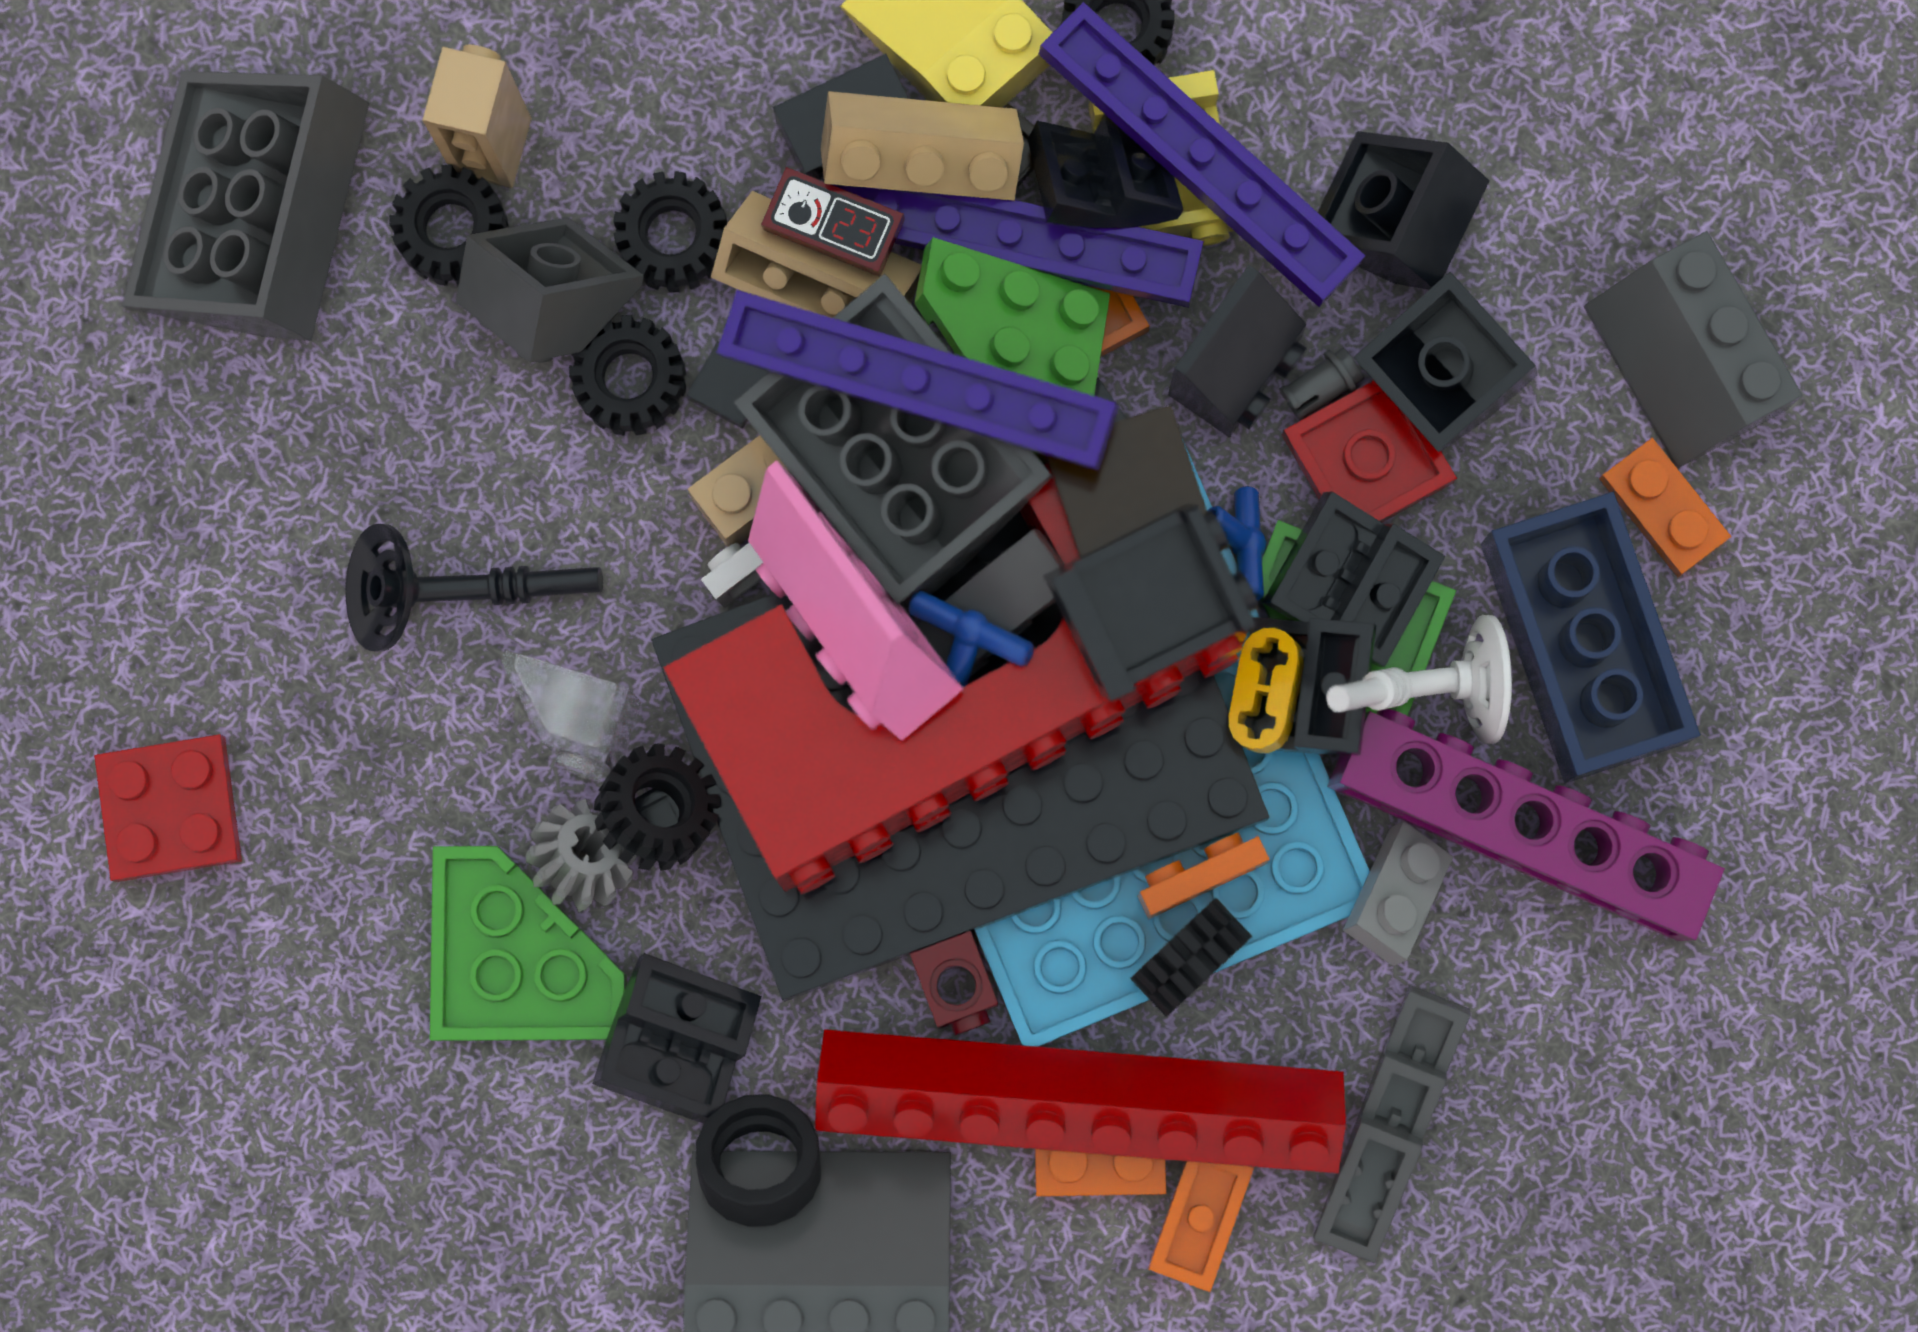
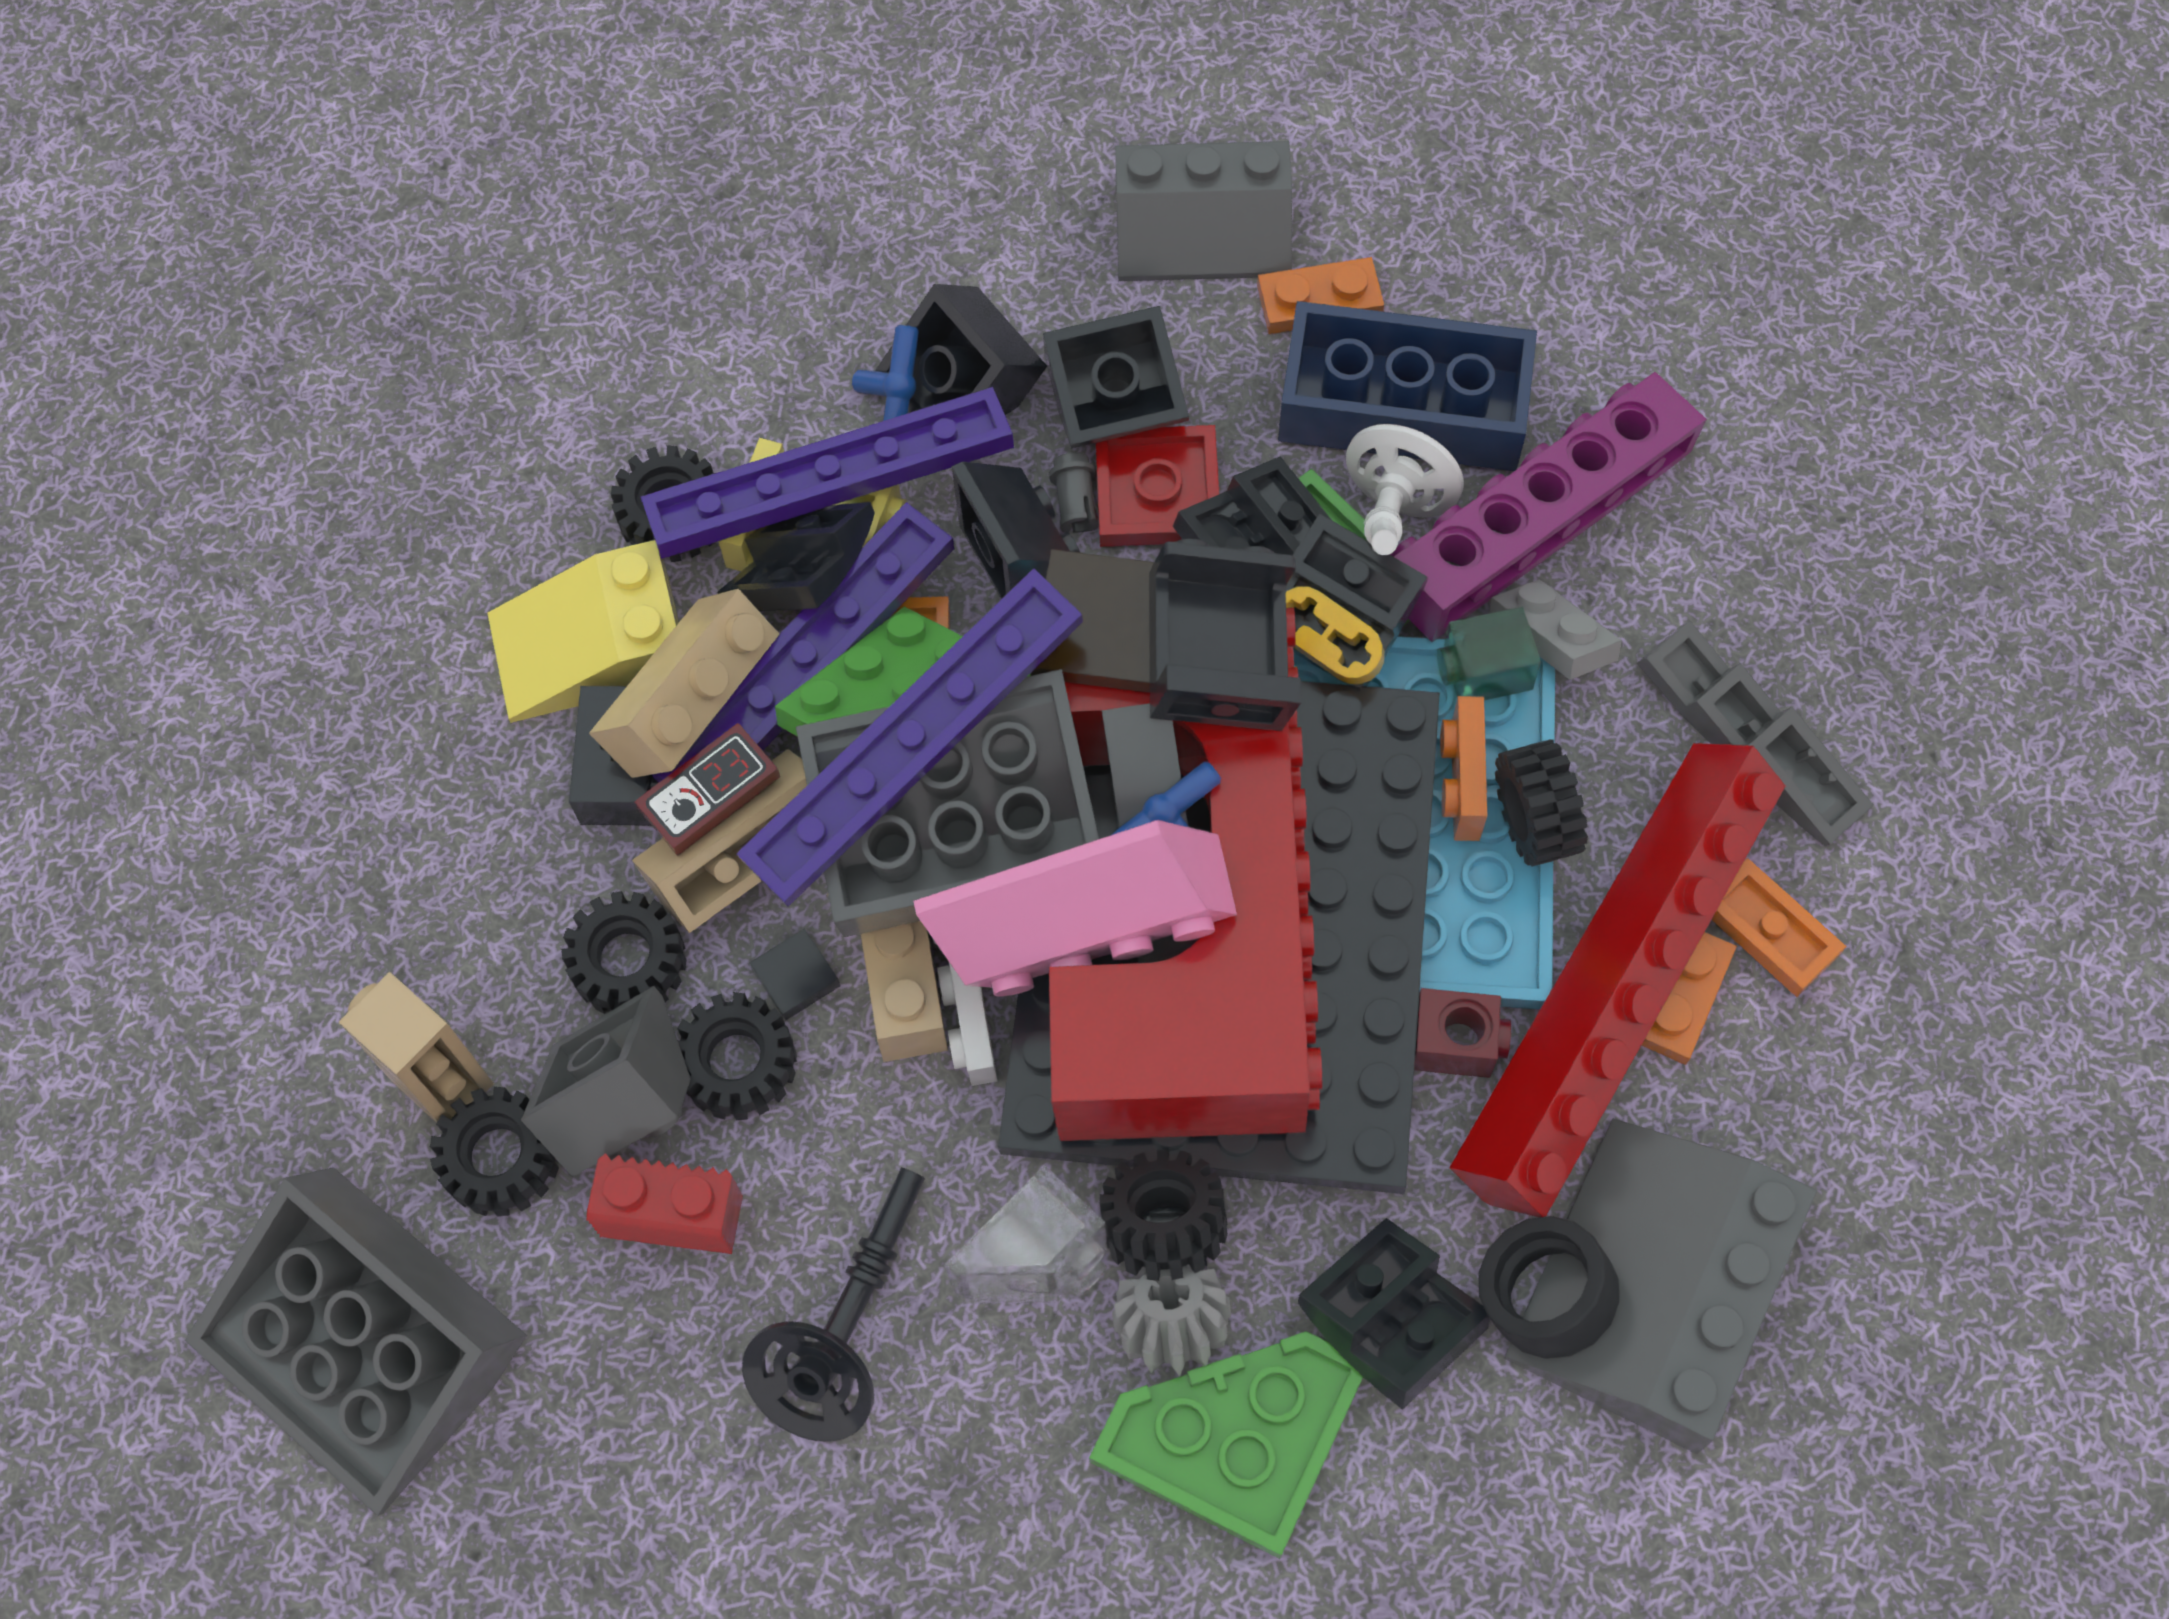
camera: 65 degrees left, 15 degrees down
(470, 390) = (664, 1204): none -> red brick
(1326, 844) = (1489, 655): none -> clear green brick
(1346, 158) = (899, 383): none -> blue piece

